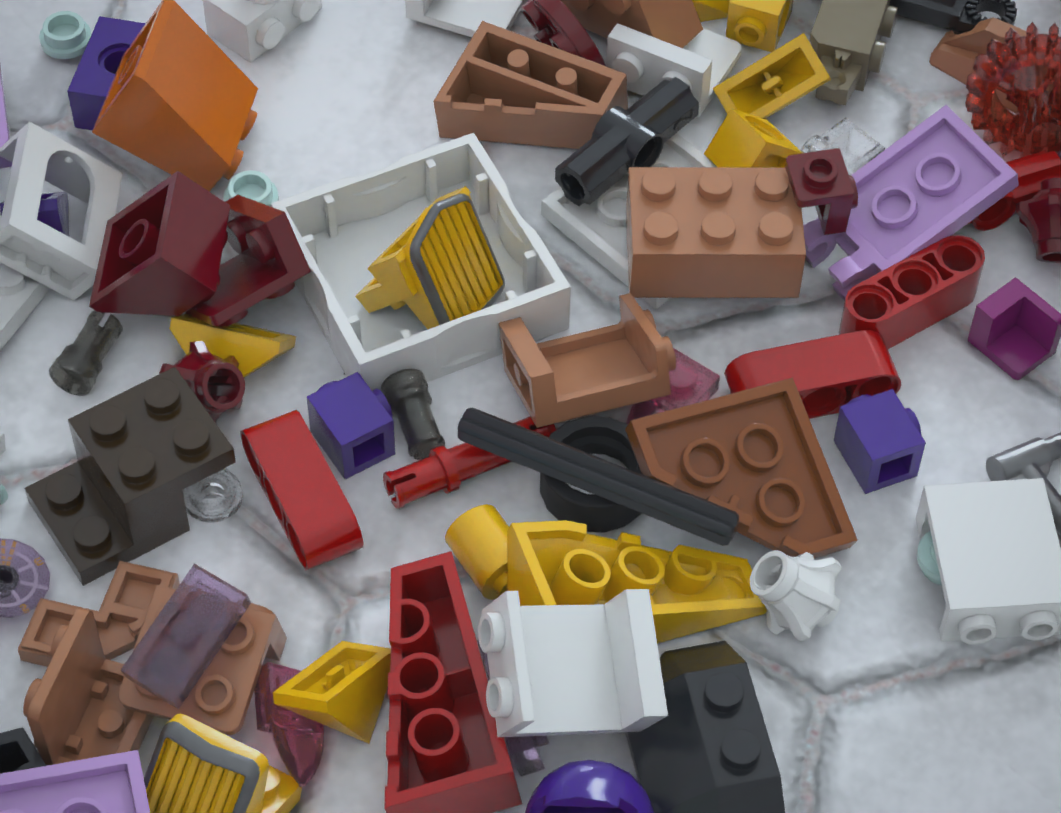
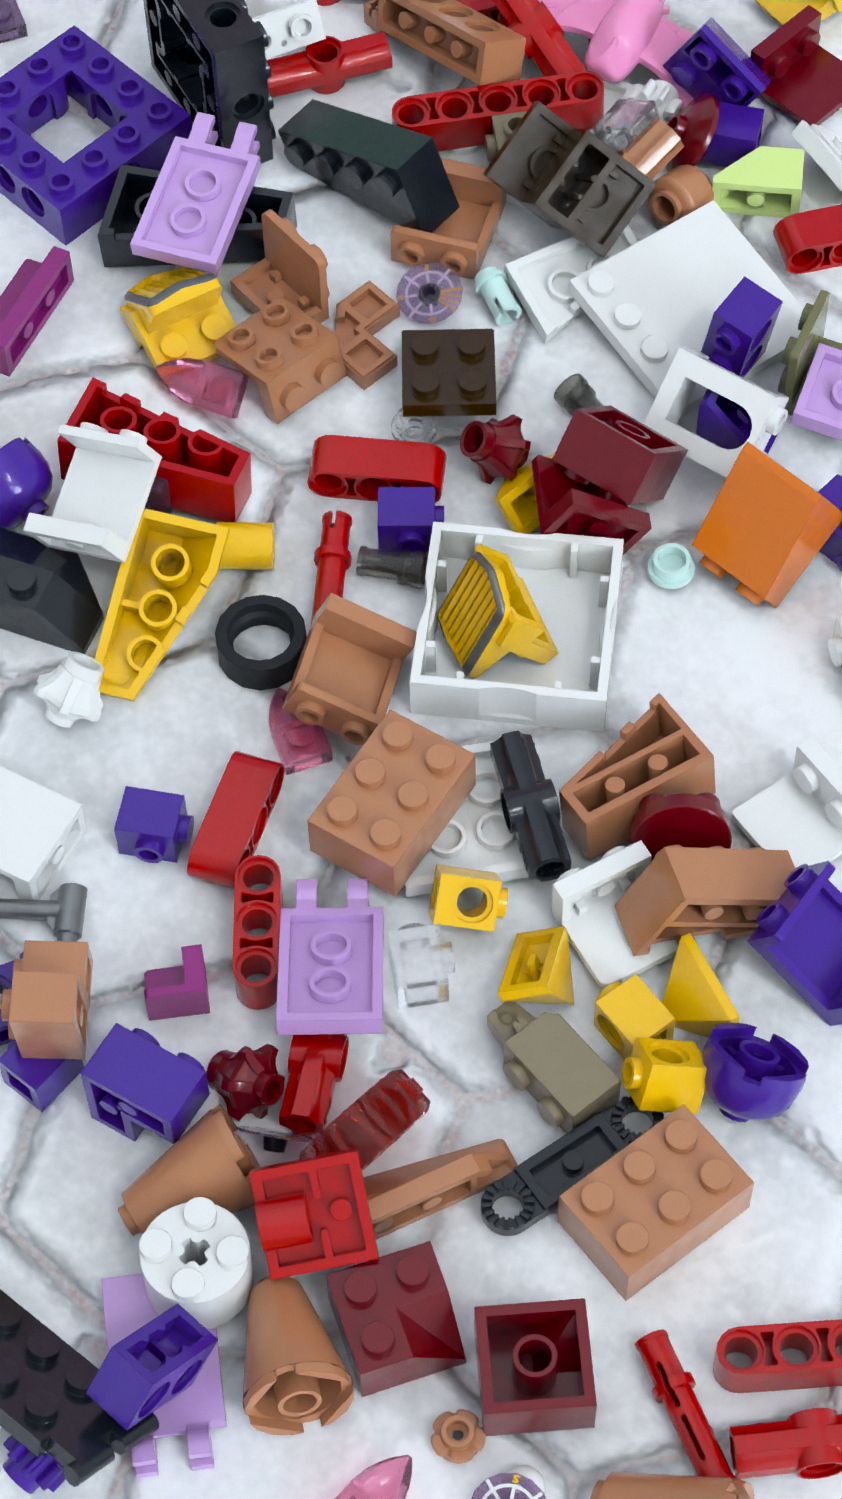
camera: 125 degrees right, 5 degrees up
(186, 636) = (276, 319): clear purple plate -> none
(341, 689) = (205, 404): yellow slope -> none
(598, 476) = (238, 612): black axle -> none
(752, 457) = (184, 713): dark orange plate -> none
(823, 182) = (359, 874): dark red bracket -> none

